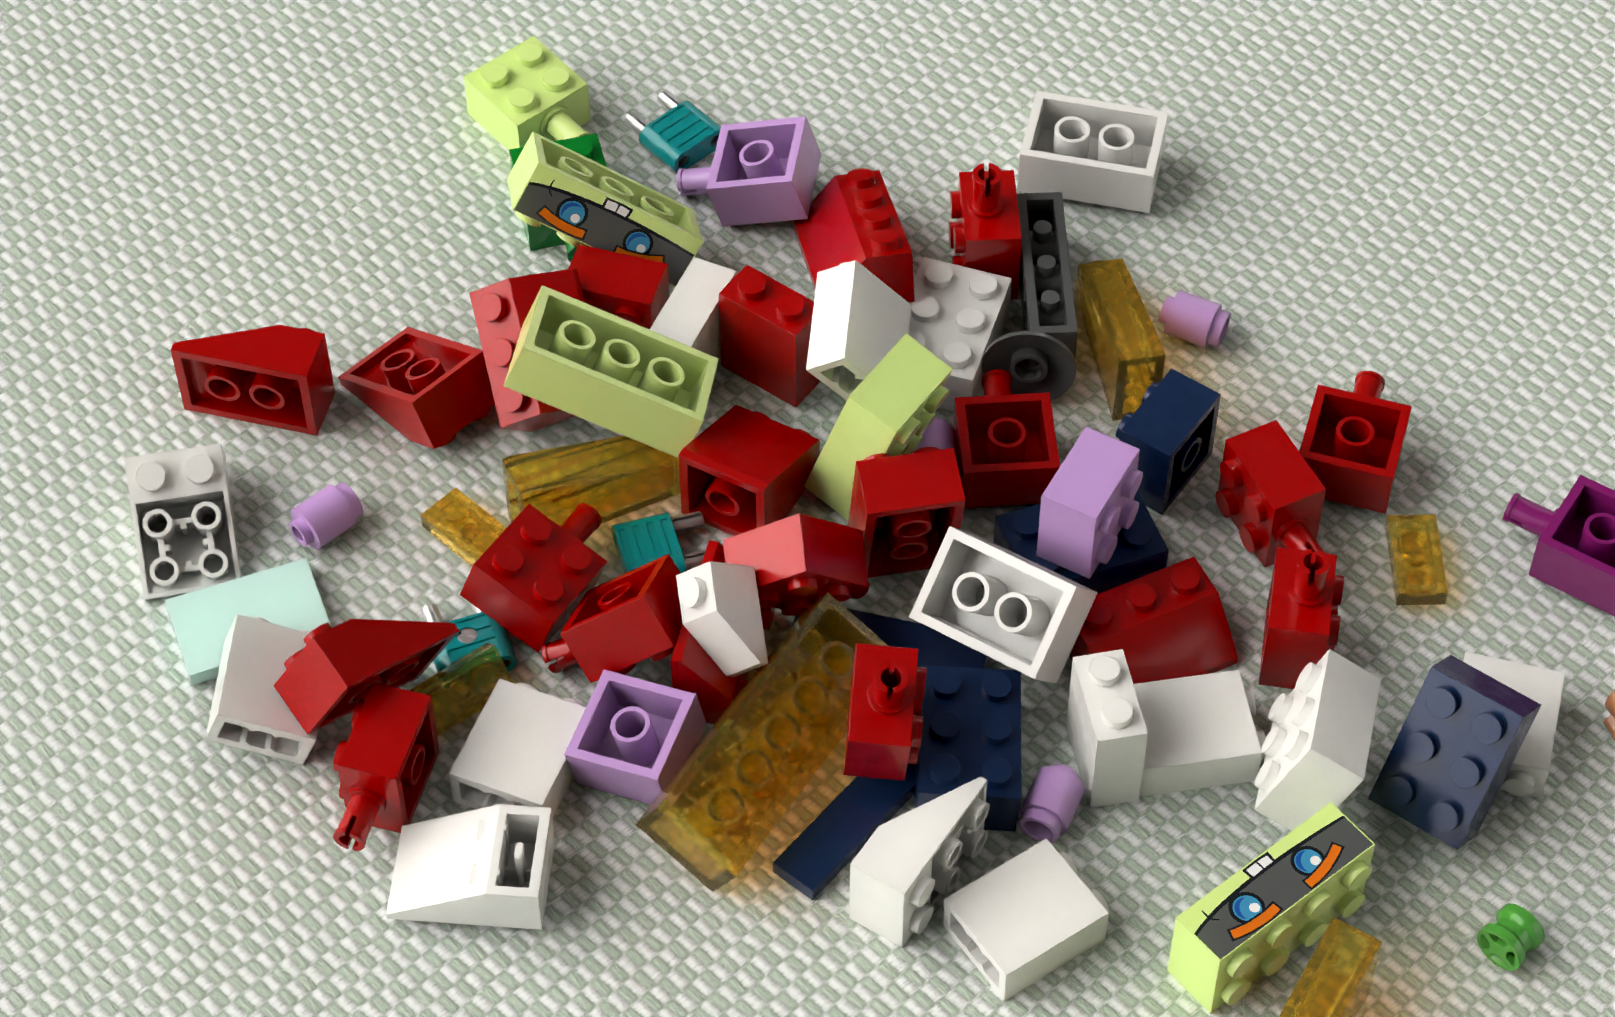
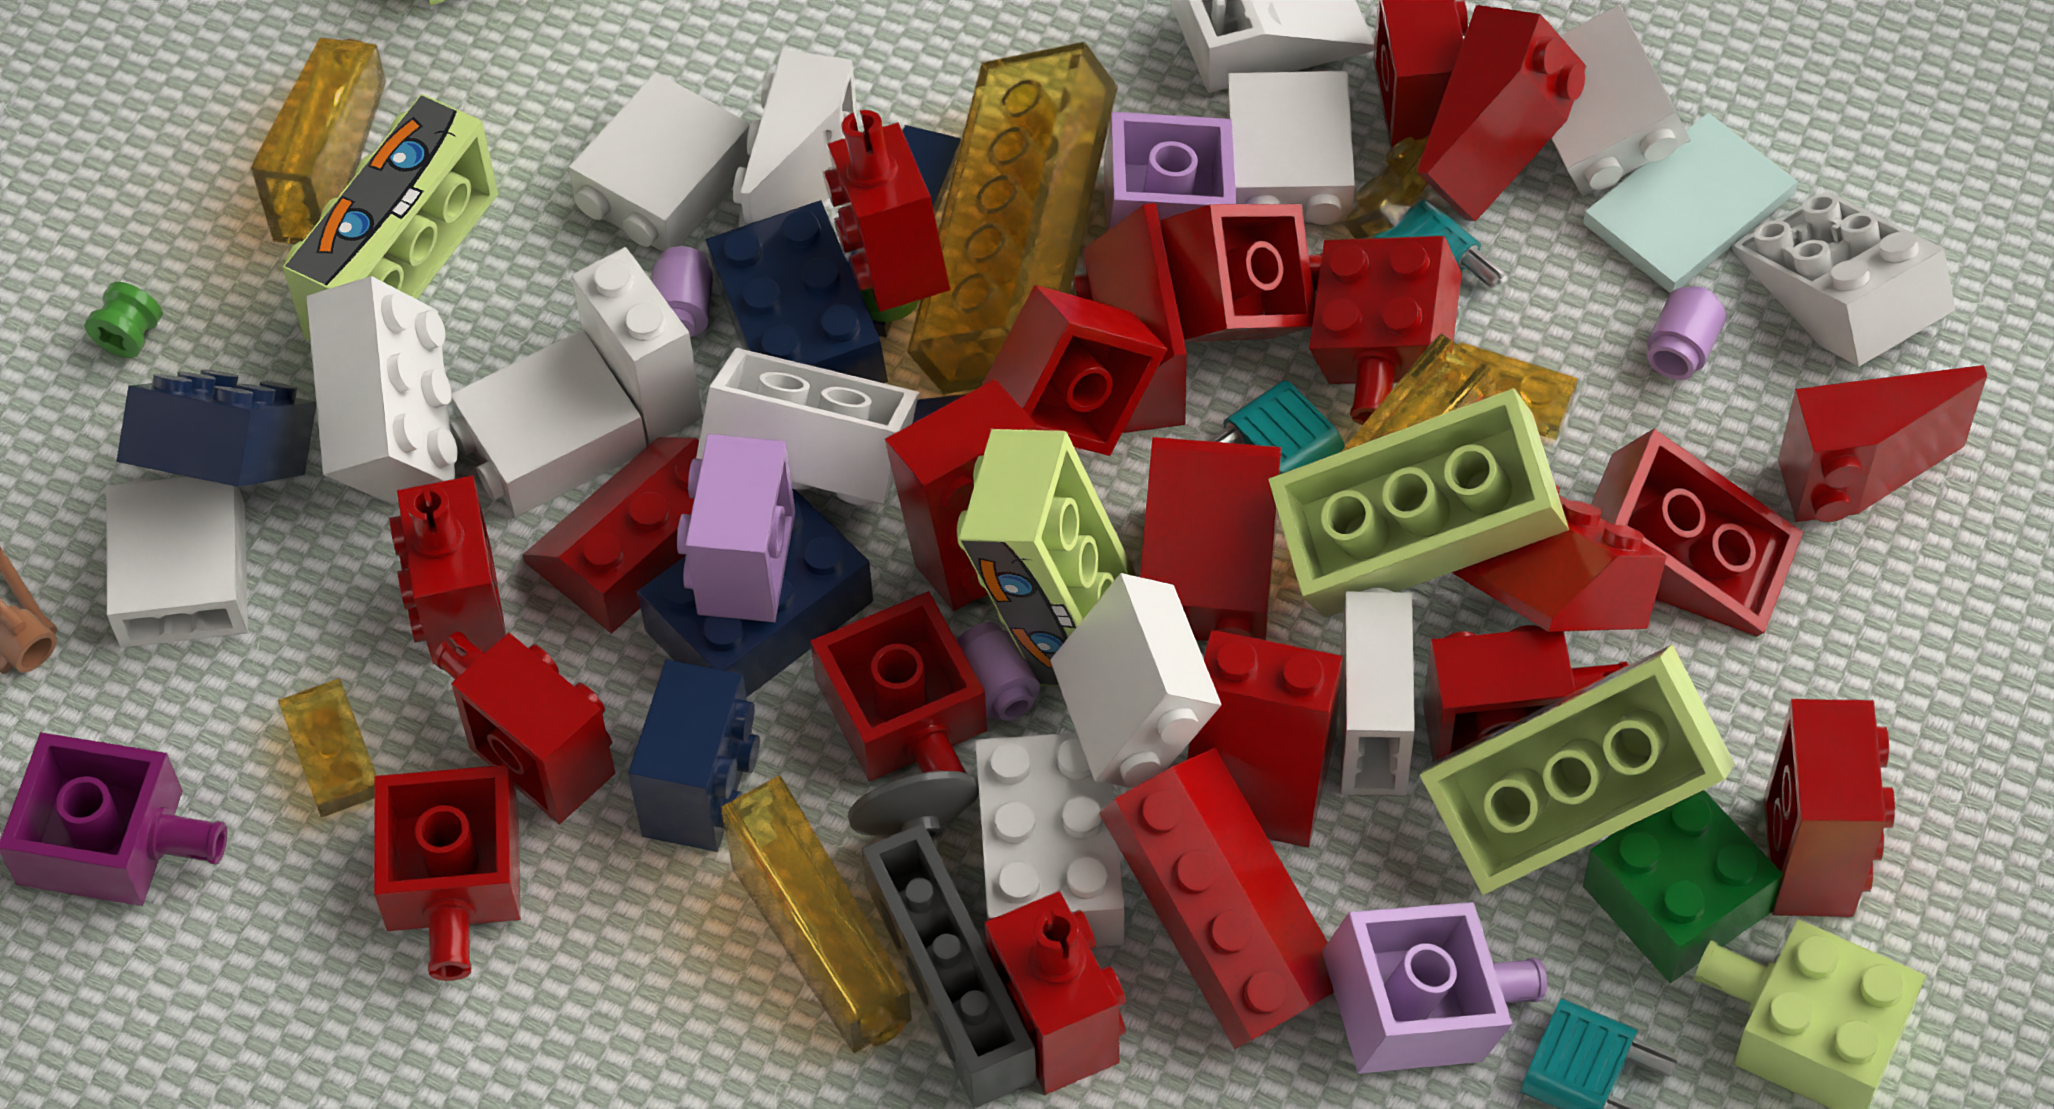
camera: 160 degrees right, 5 degrees up
(463, 159) = (1827, 806): none -> red brick
(724, 614) = (1125, 264): white slope -> none
(1194, 319) = (723, 1001): lavender brick -> none

